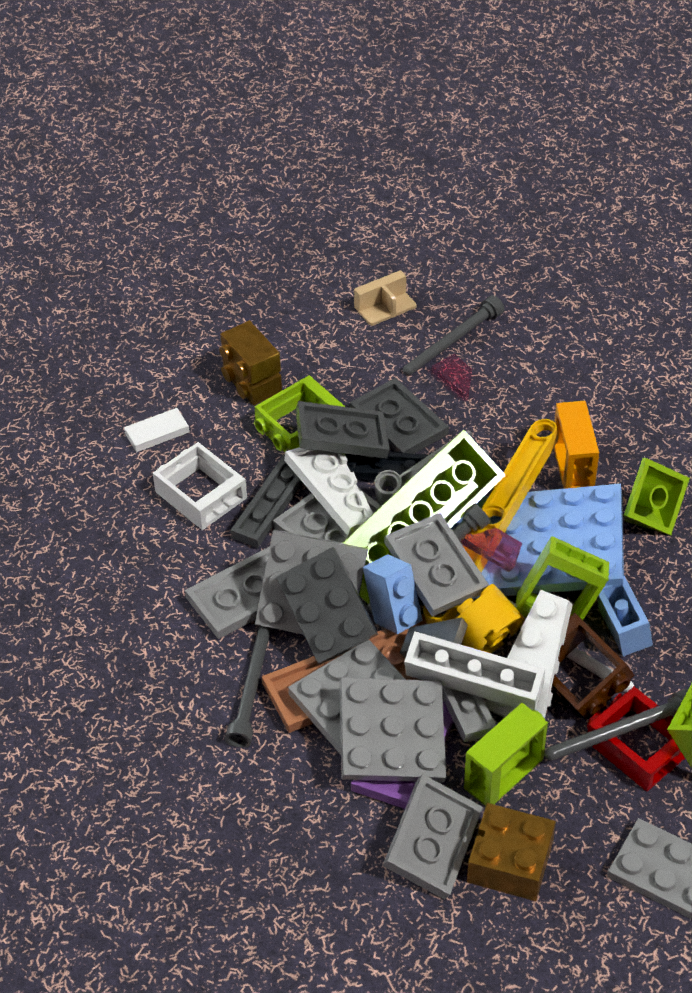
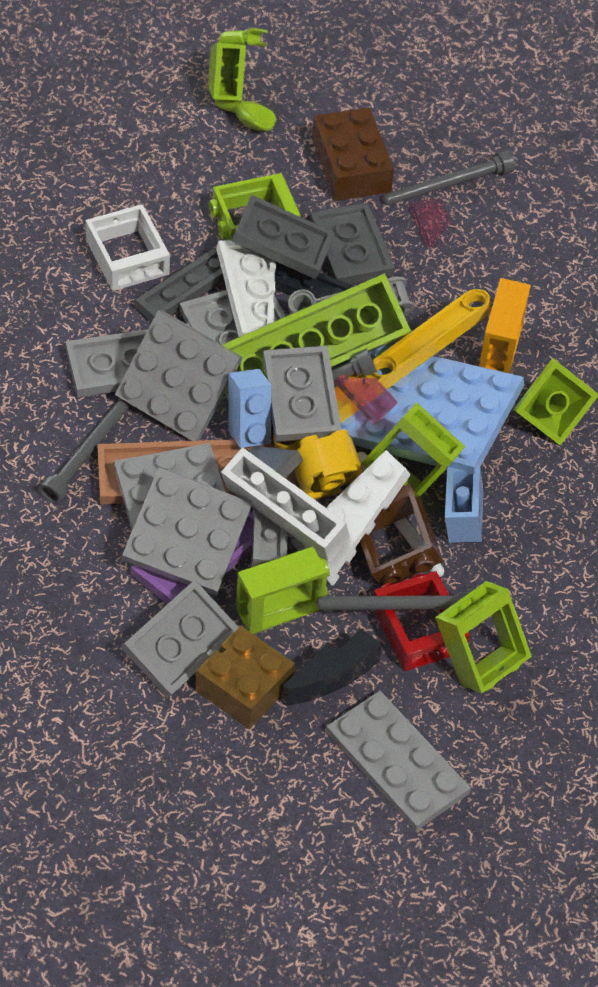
camera: 15 degrees right, 5 degrees up
(156, 429) = (114, 180): white tile -> none
(217, 300) = (227, 78): none -> lime torso
(250, 363) = (230, 142): pearl gold piece -> none
(326, 605) = (180, 398): dark grey plate -> none
(360, 340) = (352, 154): none -> reddish brown brick
(383, 298) = (401, 118): tan panel -> none
(586, 813) = (332, 669): none -> black slope

